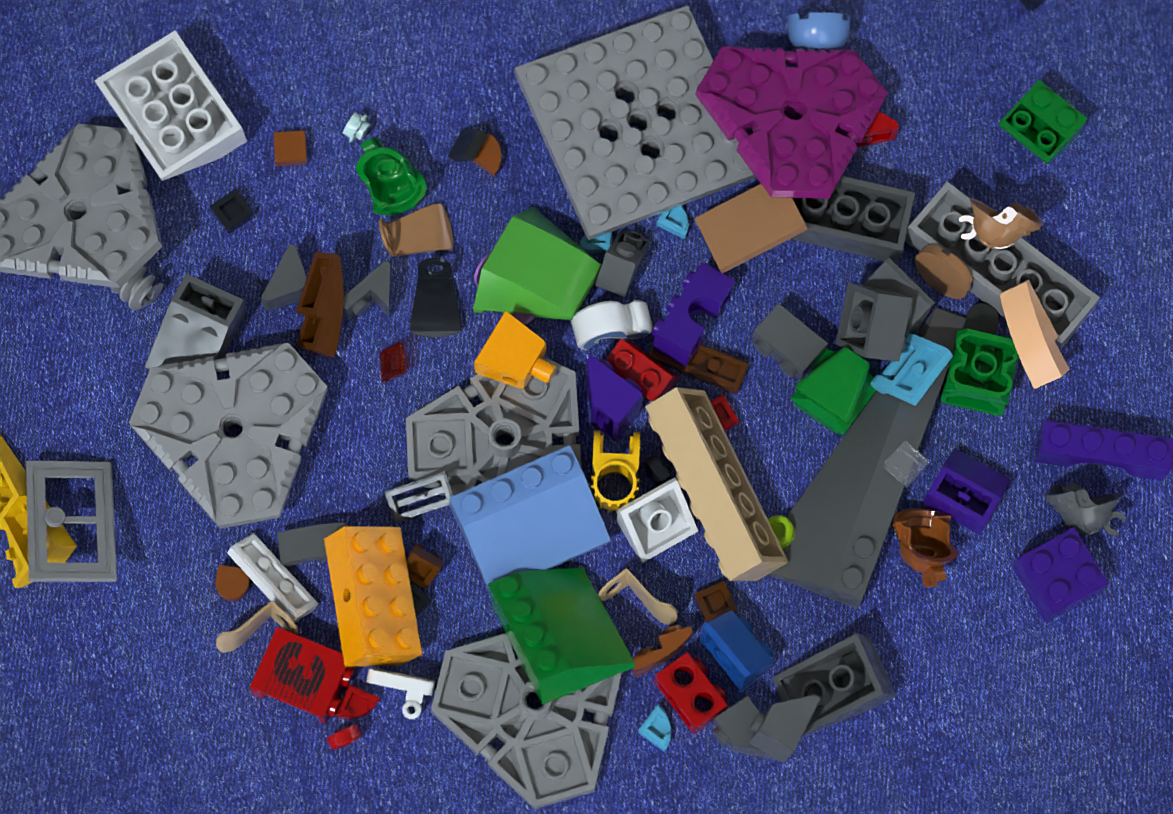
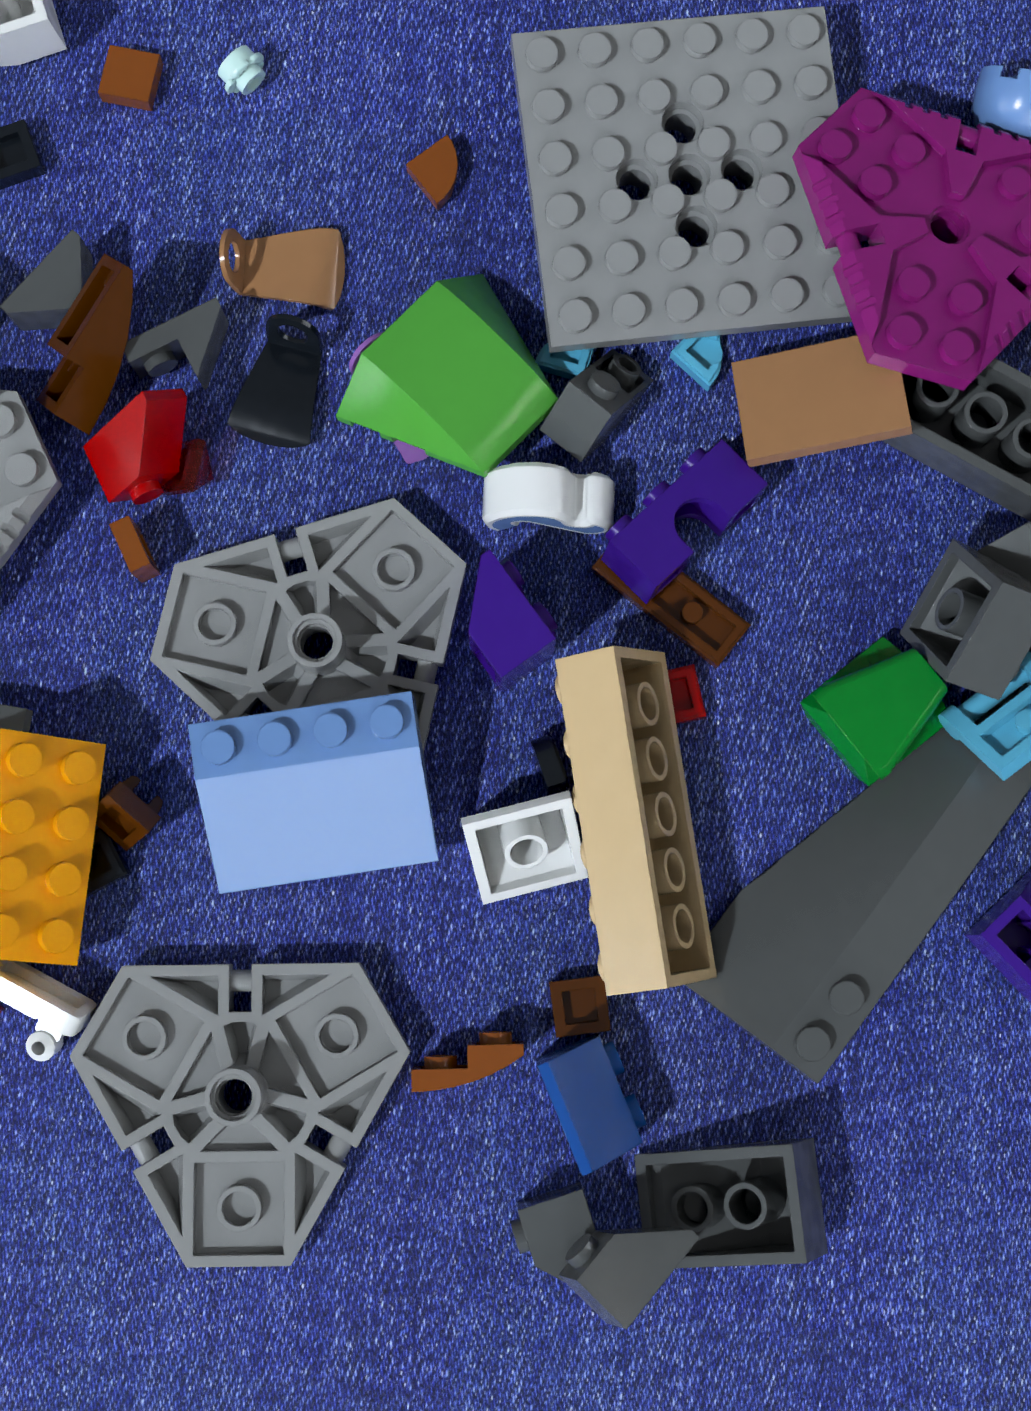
camera: 20 degrees right, 10 degrees up
(367, 356) = (140, 446): none -> red slope
(379, 416) = (134, 549): none -> dark orange tile
(390, 178) = (265, 164): green helmet -> none
(394, 505) = (198, 698): tile -> none
(467, 145) = (406, 146): pearl dark grey tile -> none
(514, 355) = (372, 510): light orange torso -> none
(559, 630) = (306, 995): green slope -> none
(615, 463) = (499, 744): yellow piece -> none
(643, 369) = (571, 591): red brick -> none
(657, 728) = (425, 1186): medium azure tile -> none
(661, 611) = (440, 929): tan piece -> none
(683, 696) = (483, 1152): red brick -> none
(783, 529) = (724, 917): lime tile -> none
(788, 342) = (824, 609): dark grey brick -> none
(905, 463) = (958, 874): clear tile -> none
(925, 542) = (952, 1009): dark orange helmet -> none

